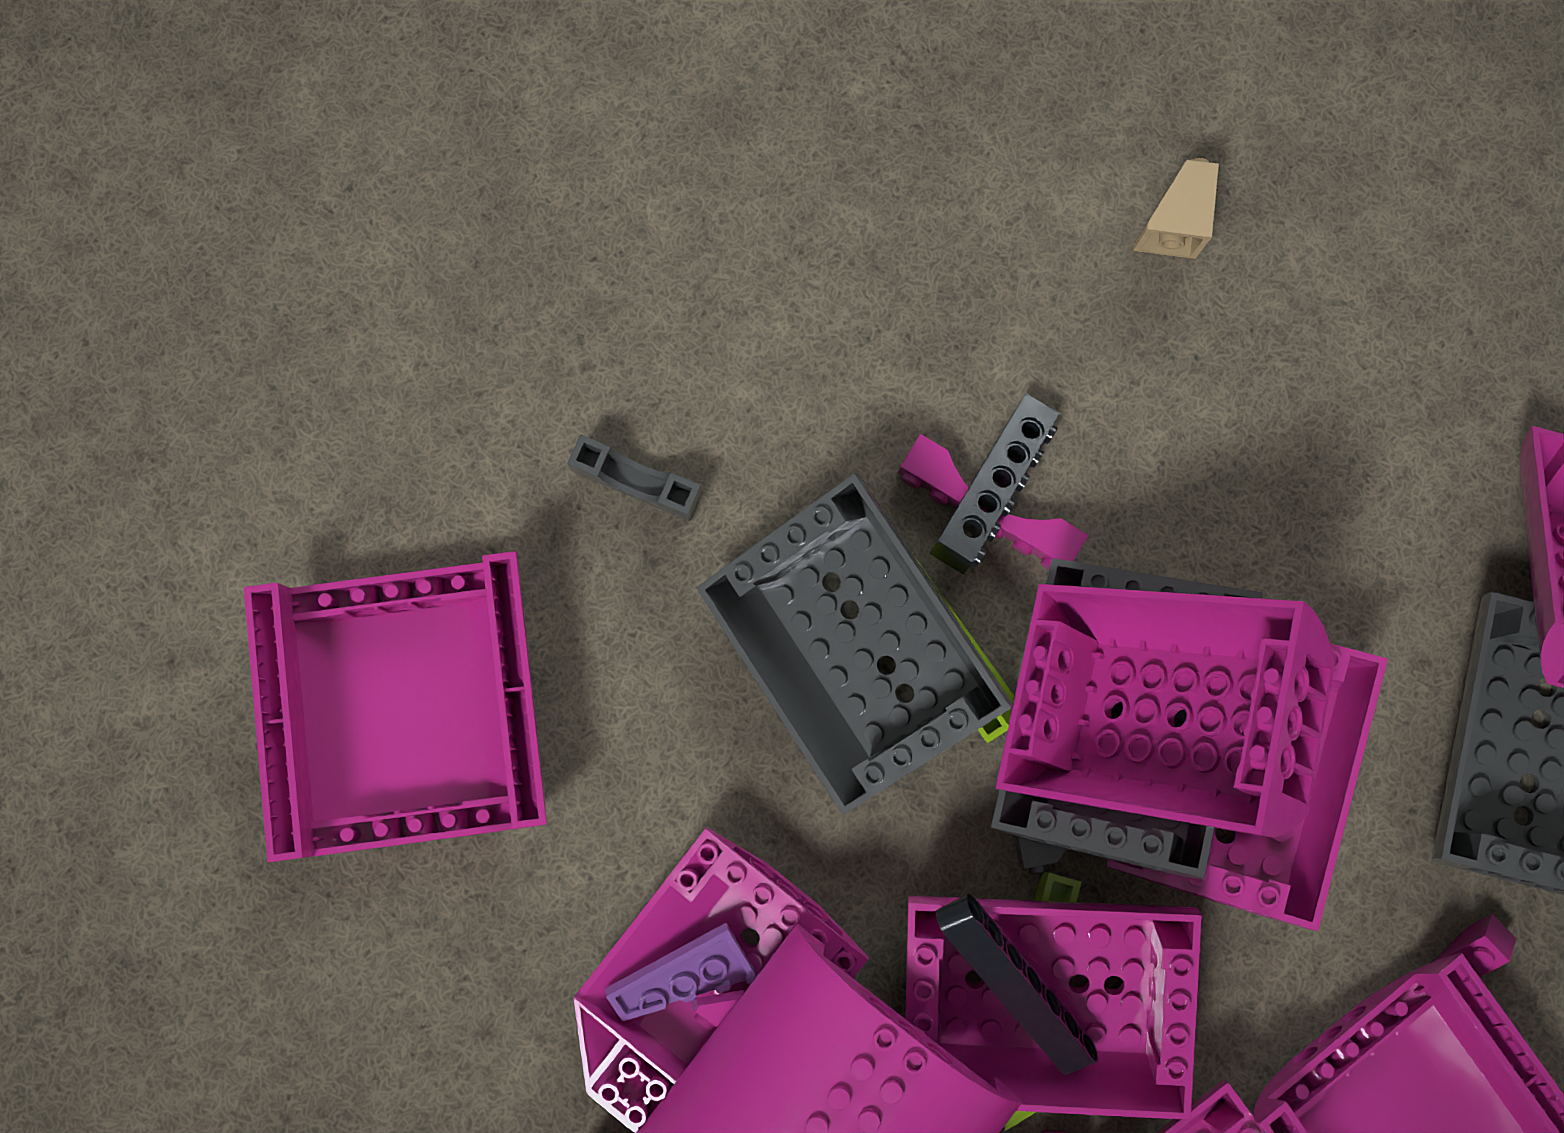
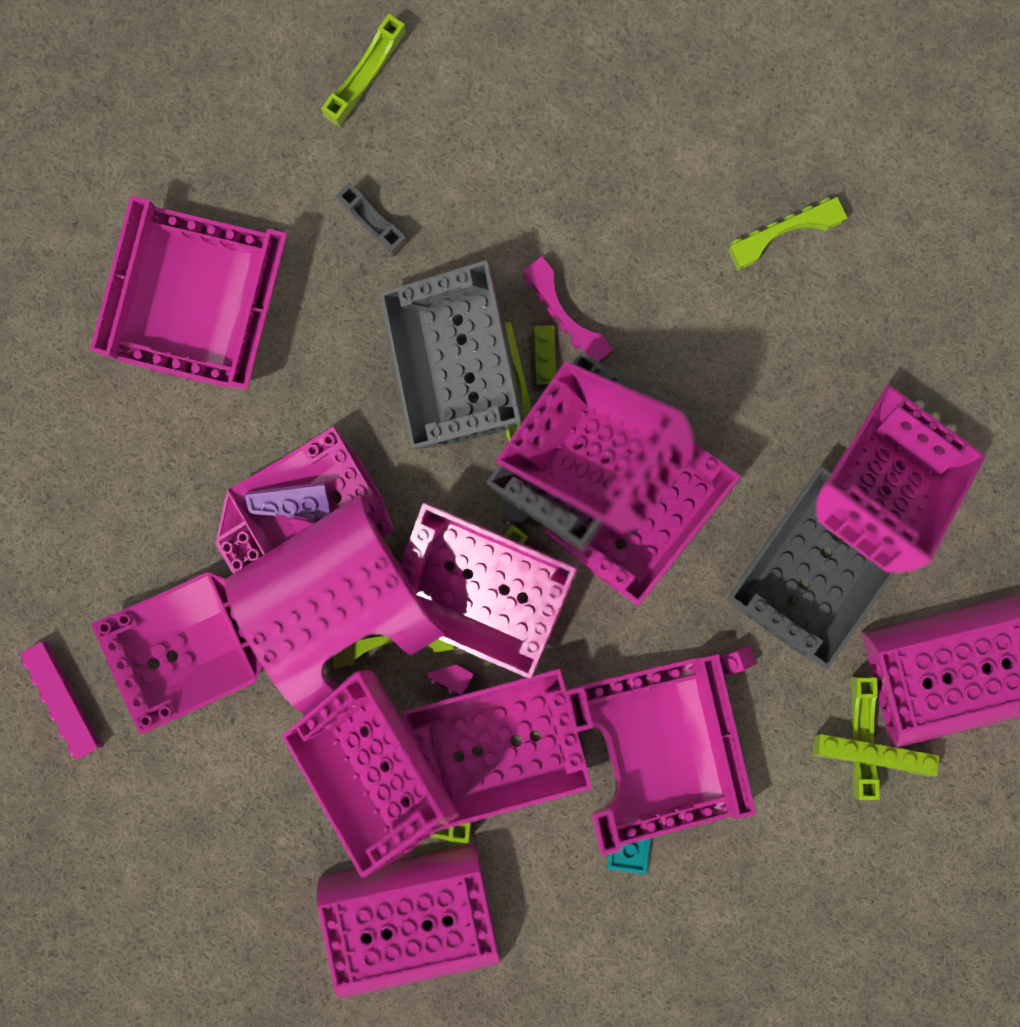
camera: 20 degrees right, 5 degrees up
(525, 303) = (348, 94): none -> lime arch
(953, 544) = (607, 270): black brick -> none
(989, 595) = (545, 354): none -> lime plate
(1016, 984) = (466, 571): black beam -> none
(1185, 213) = (744, 185): tan slope -> none
(1311, 217) = (822, 217): none -> lime arch

